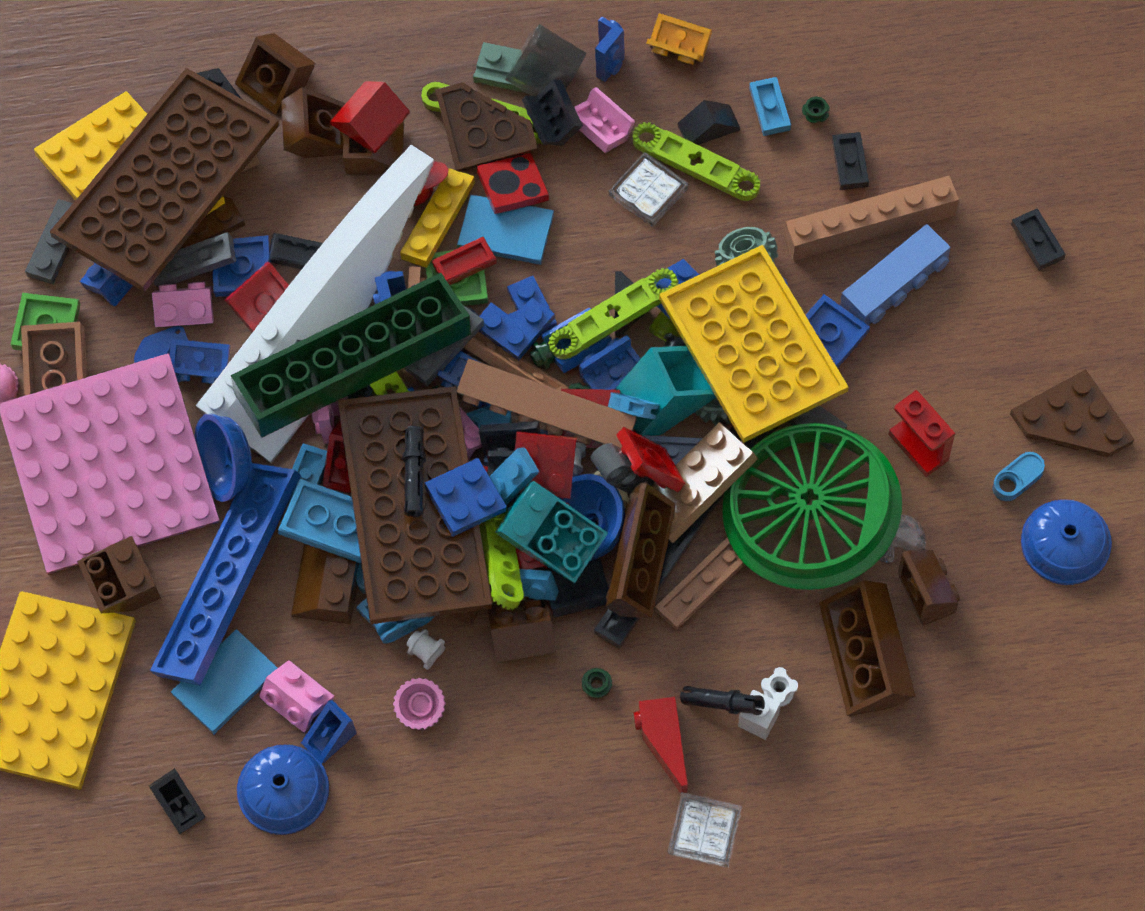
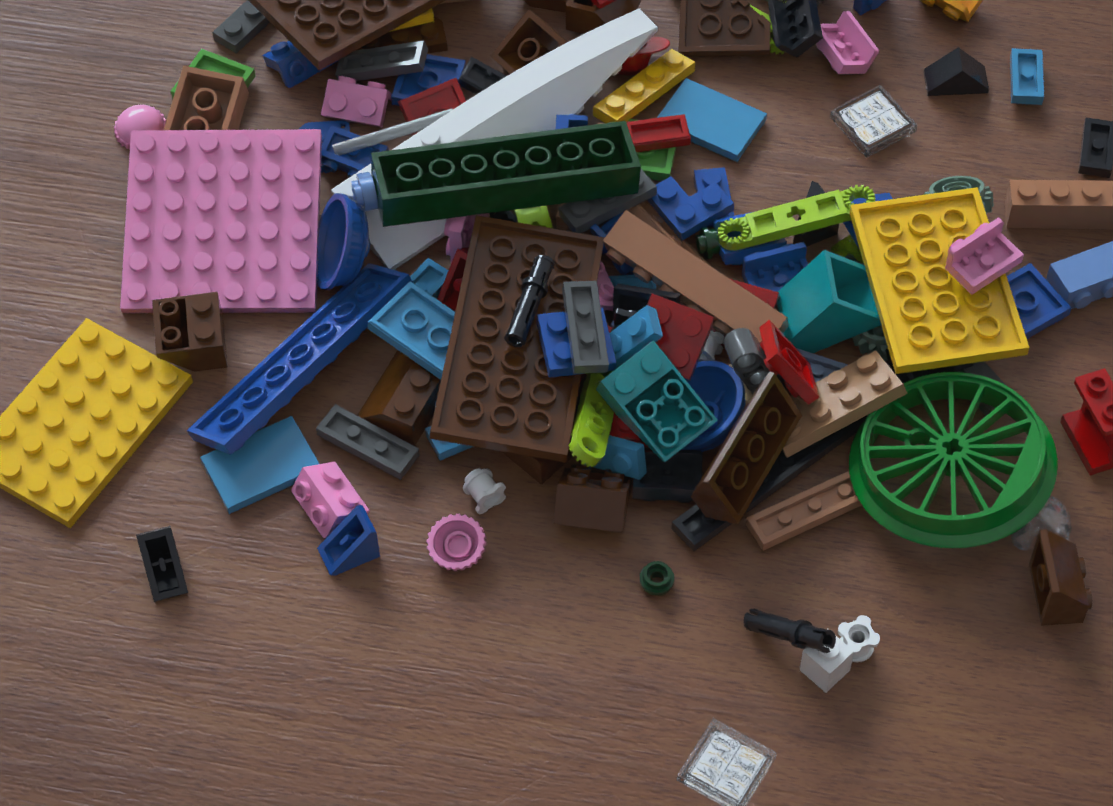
camera: 15 degrees right, 10 degrees down
(229, 332) = (387, 134): none -> light grey bar
(232, 405) = (364, 191): none -> medium blue plate
(288, 806) = (281, 603): blue hat -> none
(310, 633) = (368, 442): none -> dark grey plate
(323, 206) = (526, 43): none -> reddish brown slope
(394, 630) = (463, 459): dark azure piece -> none
(471, 485) = (585, 327): none -> dark grey plate
(512, 183) = (732, 78): red tile -> none
(632, 405) = (788, 305): dark azure piece -> none
(662, 735) = (710, 650): red slope -> none
(714, 169) = (947, 119): lime piece -> none
(787, 316) = (982, 256): none -> bright pink bracket
(819, 104) = (1075, 92): dark green plate -> none
(867, 648) = (970, 628): reddish brown slope -> none

